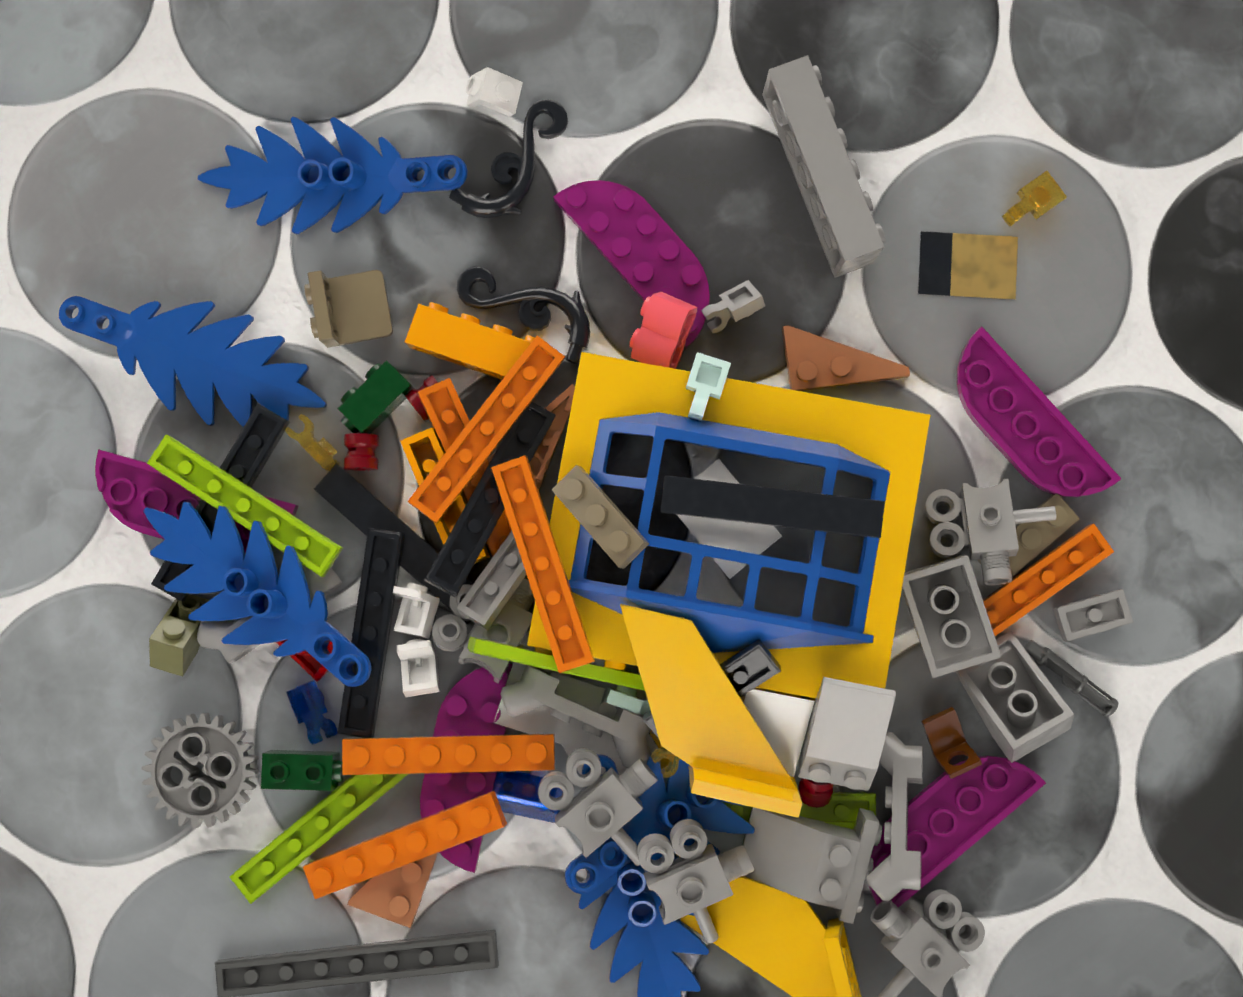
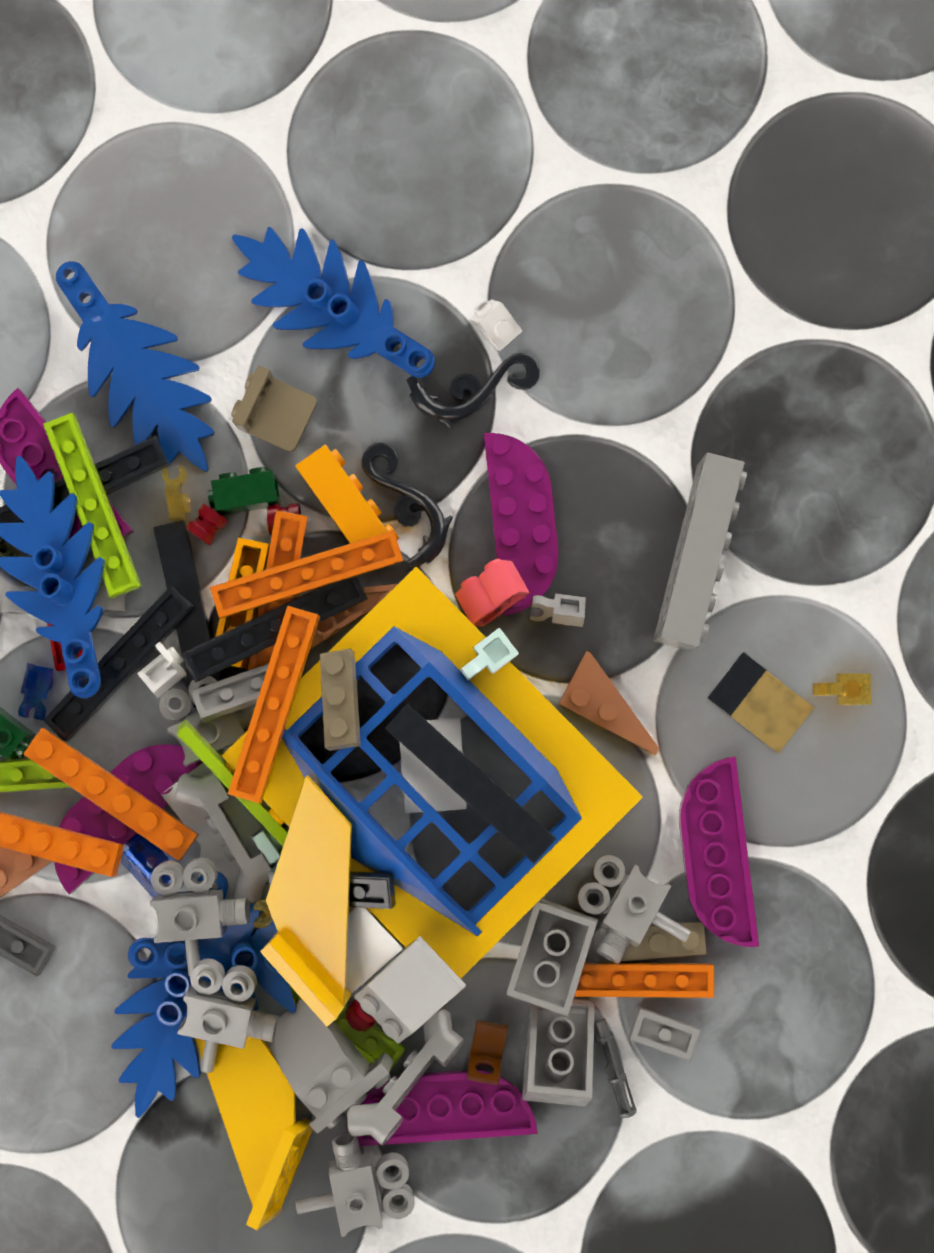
camera: 35 degrees right, 0 degrees up
(418, 667) = (135, 714): white bracket -> none

